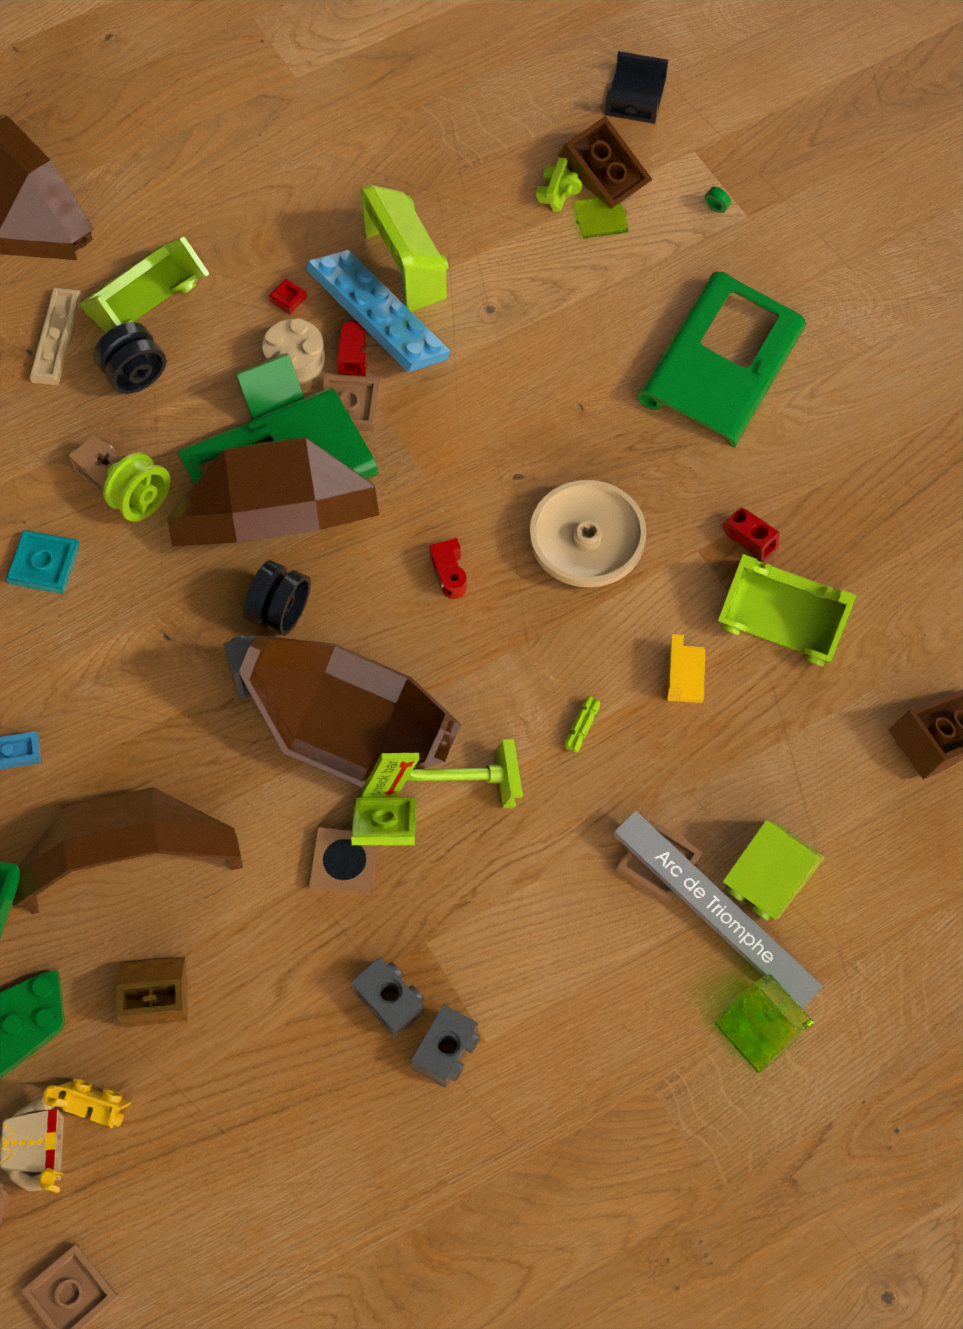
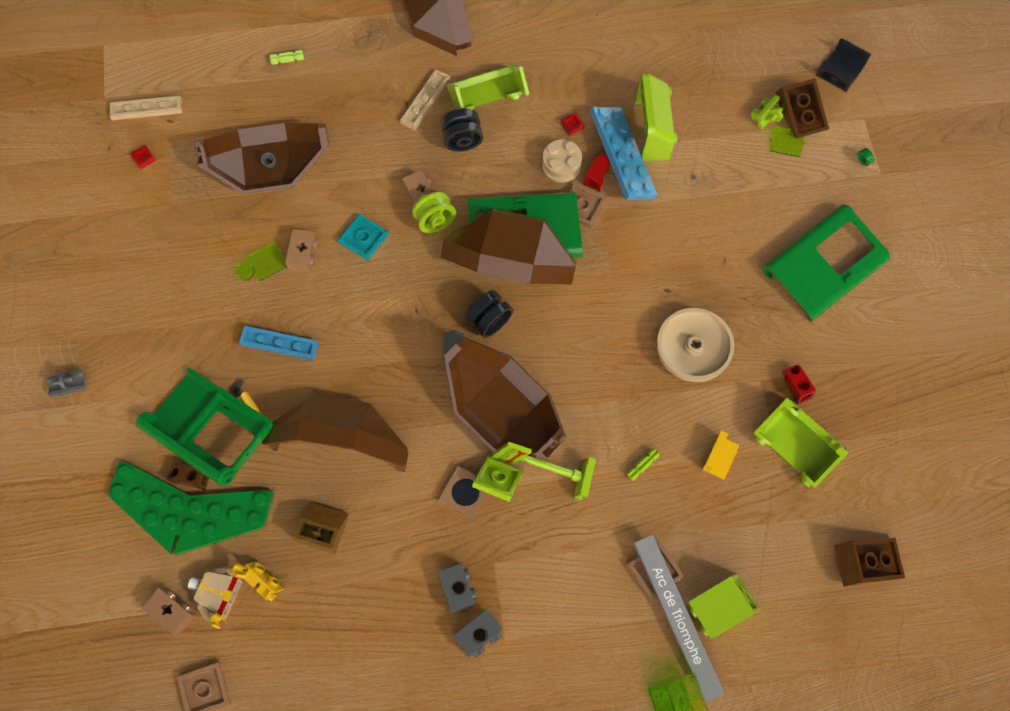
camera: 20 degrees right, 5 degrees up
(269, 385) = (538, 178): tile -> none
(449, 574) = (599, 333): red leg -> none

